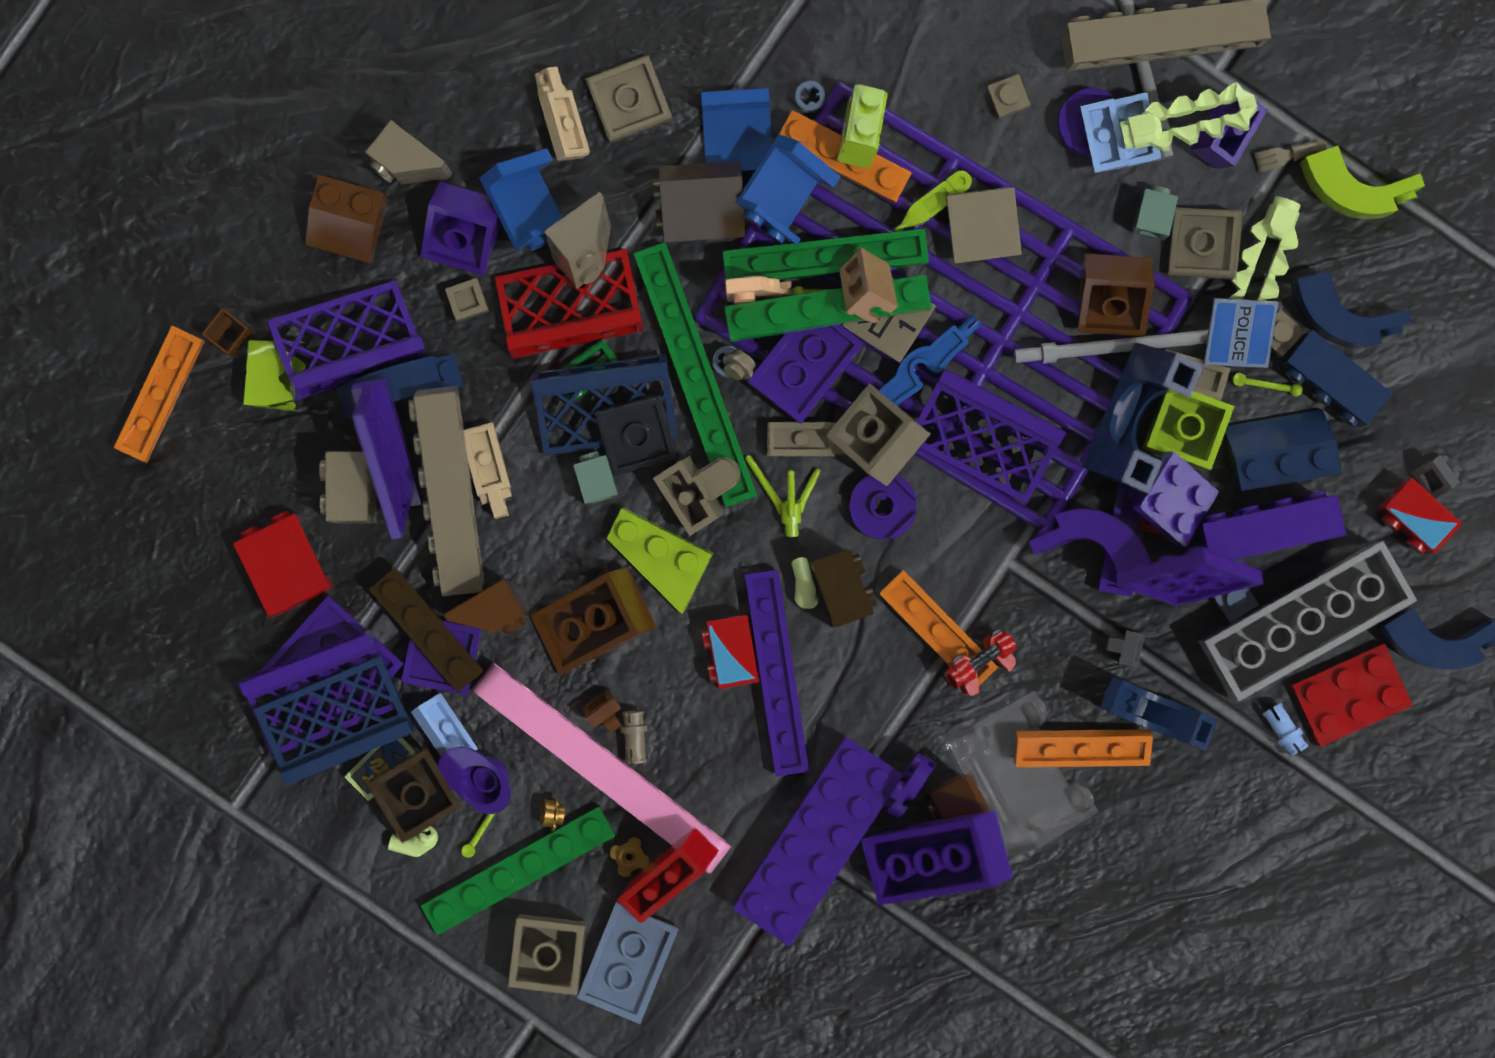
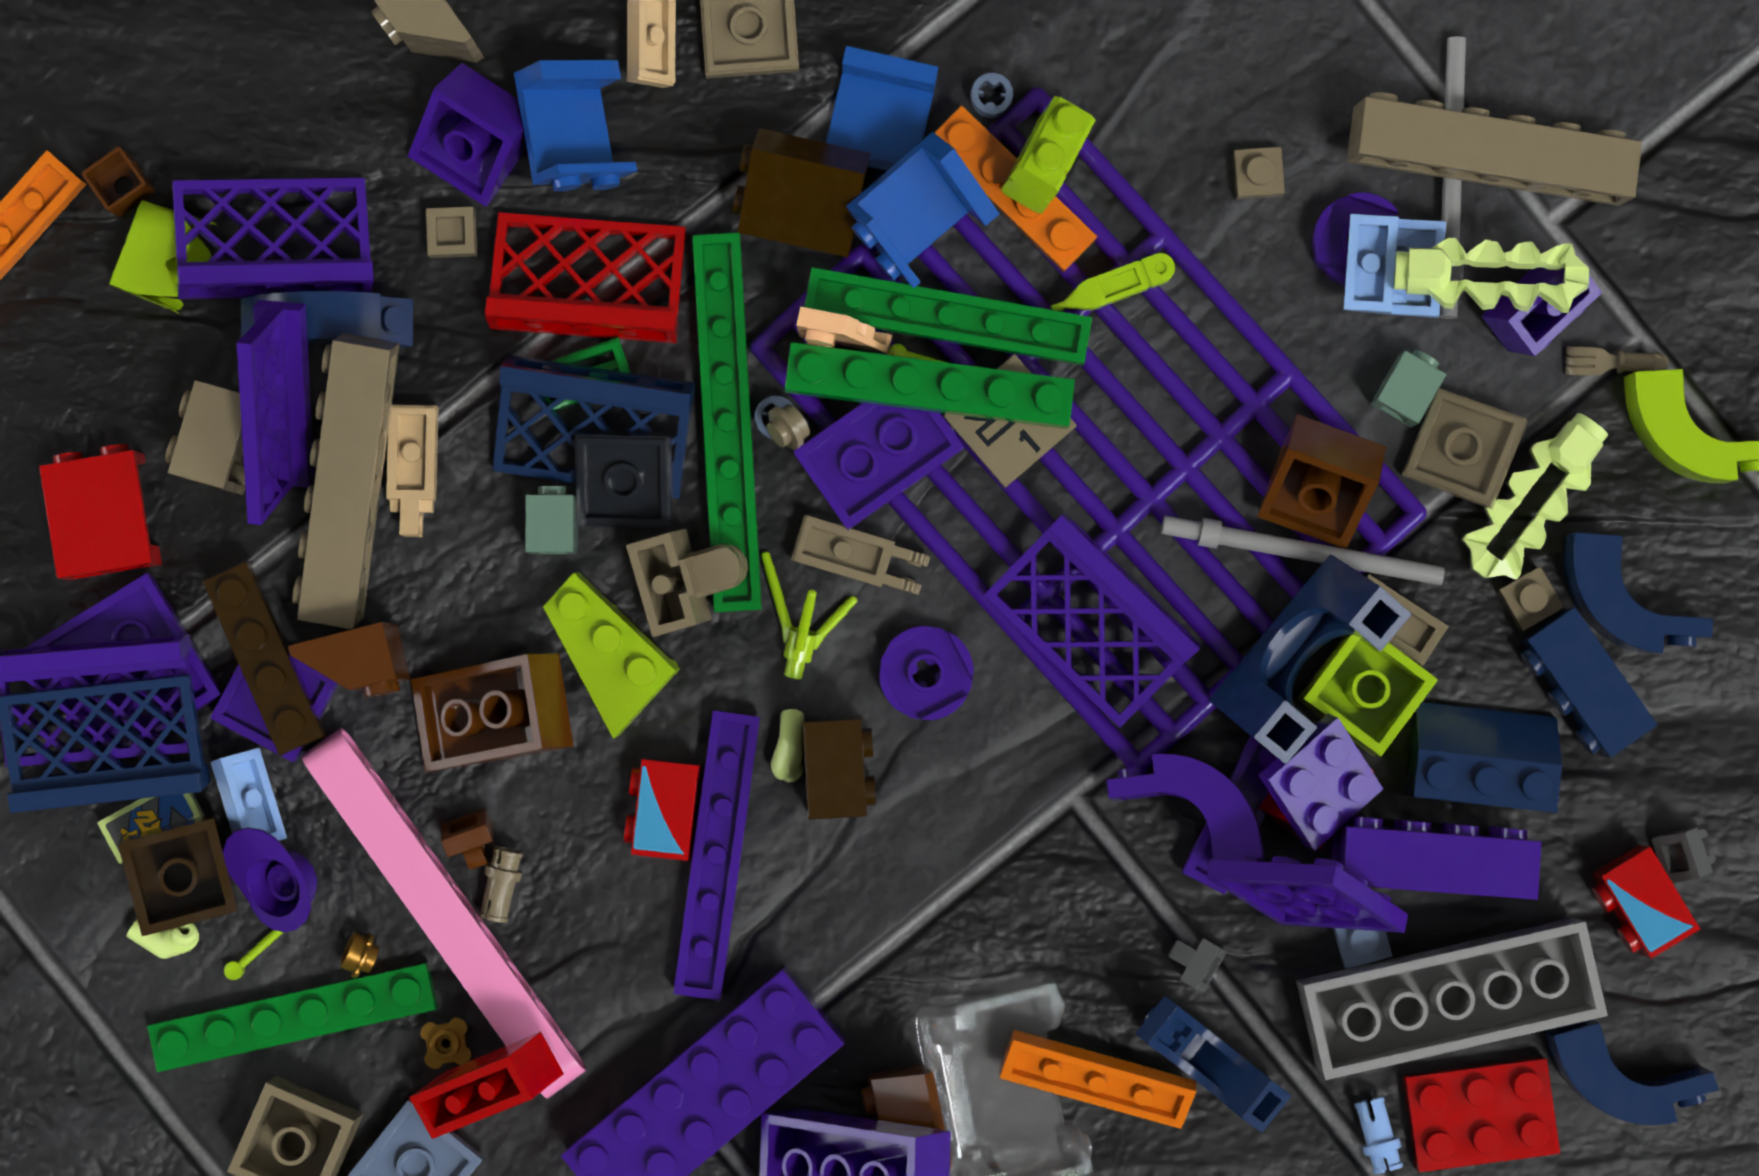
camera: 20 degrees right, 0 degrees up
(345, 219) = (321, 75): reddish brown slope -> none
(581, 241) = (626, 198): dark tan slope -> none
(867, 285) = (990, 370): medium nougat hinge -> none
(878, 435) = (946, 576): dark tan slope -> none
(909, 785) = (858, 1053): dark purple plate -> none
(932, 357) = (1053, 494): blue piece -> none
(932, 622) = (950, 862): orange plate -> none
(963, 670) = (966, 927): red piece -> none
(983, 224) = (1173, 335): dark tan tile -> none
(1240, 332) = (1476, 582): piece -> none
(1240, 379) = (1457, 645): lime hinge -> none

